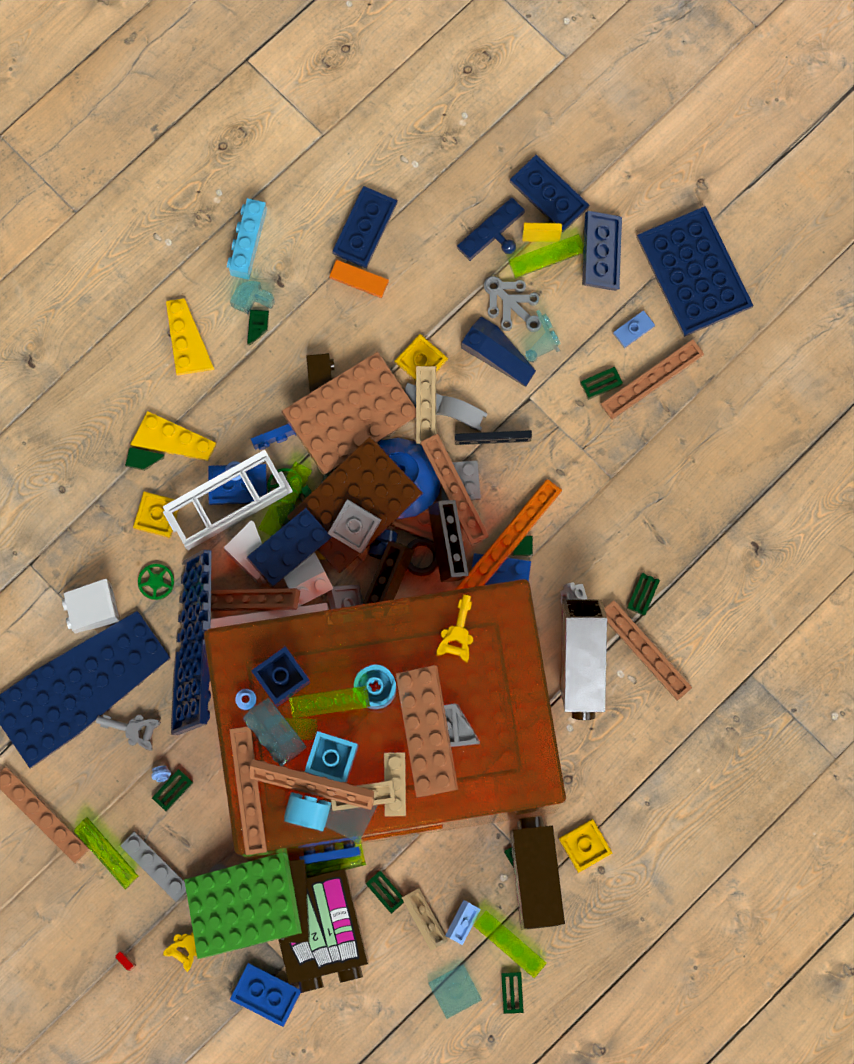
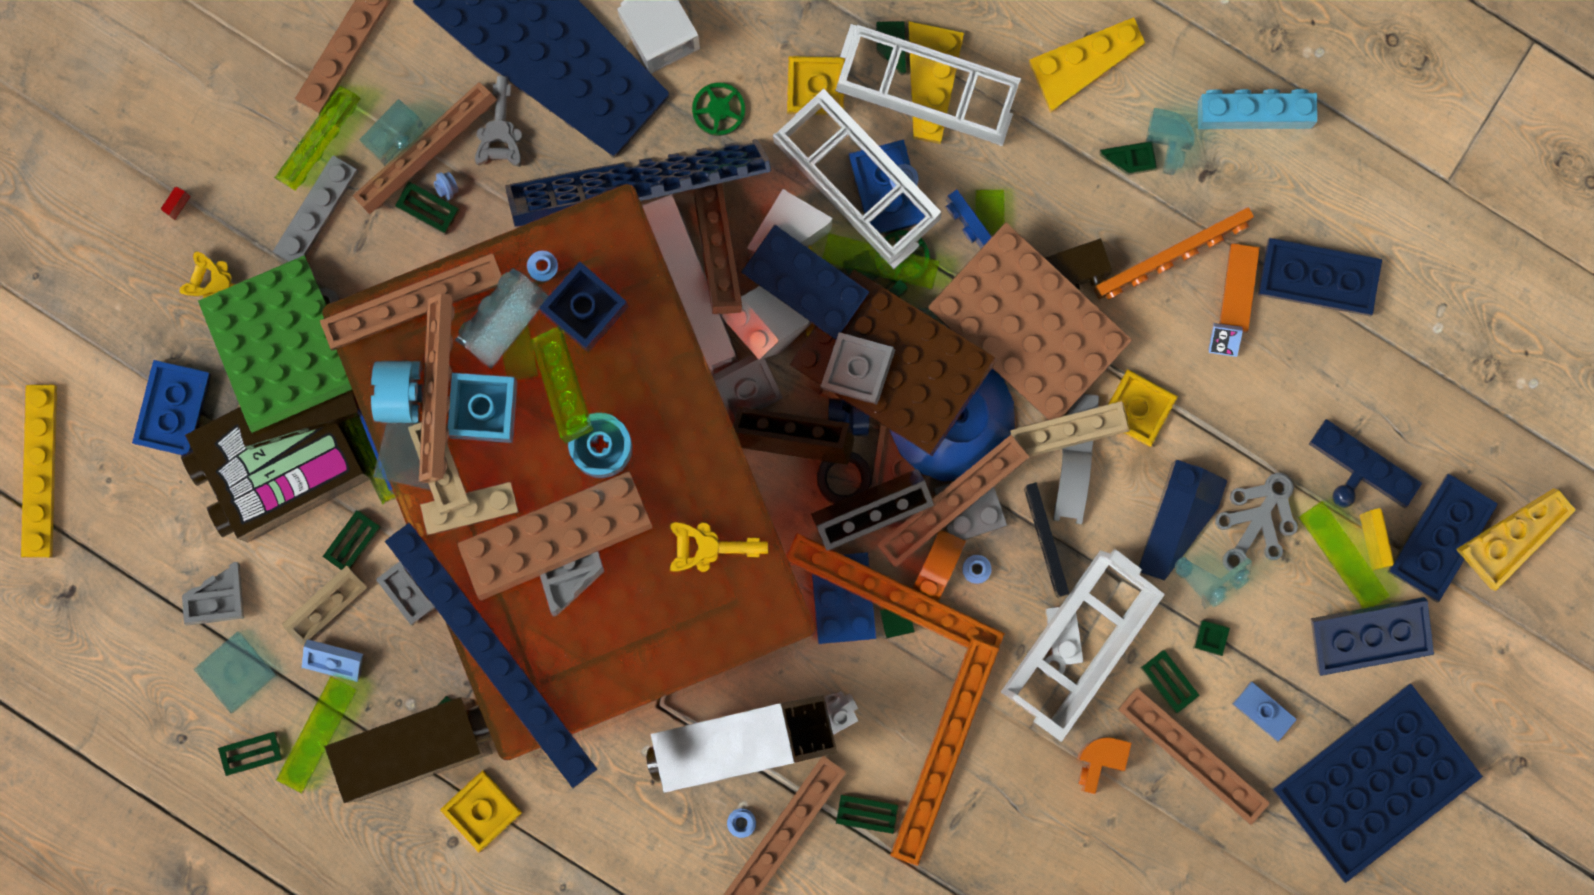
camera: 75 degrees right, 5 degrees up
(115, 801) = (391, 132): none -> clear light blue brick
(131, 782) = (424, 148): none -> nougat plate
(142, 485) = (883, 99): none -> white piece
(268, 421) = (990, 209): none -> clear neon green tile
(326, 305) = (1163, 261): none -> orange plate
(390, 295) = (1225, 339): none -> tile
(403, 993) = (215, 599): none -> light grey wing
(428, 862) = (405, 593): none -> light grey plate
(493, 508) = (939, 565): none -> orange brick
(494, 792) = (491, 655): none -> dark blue plate
(501, 492) = (967, 569): none -> light blue plate
(559, 442) = (1067, 646): none -> white hinge
(561, 151) = (1514, 539): none -> yellow wing
(576, 416) = (1106, 658): none -> white piece
(579, 350) = (1211, 638): none -> dark green tile
(614, 534) = (944, 751): none -> orange tile
(633, 670) = (751, 823): none -> light blue plate
(638, 437) = (1098, 753): none -> orange brick

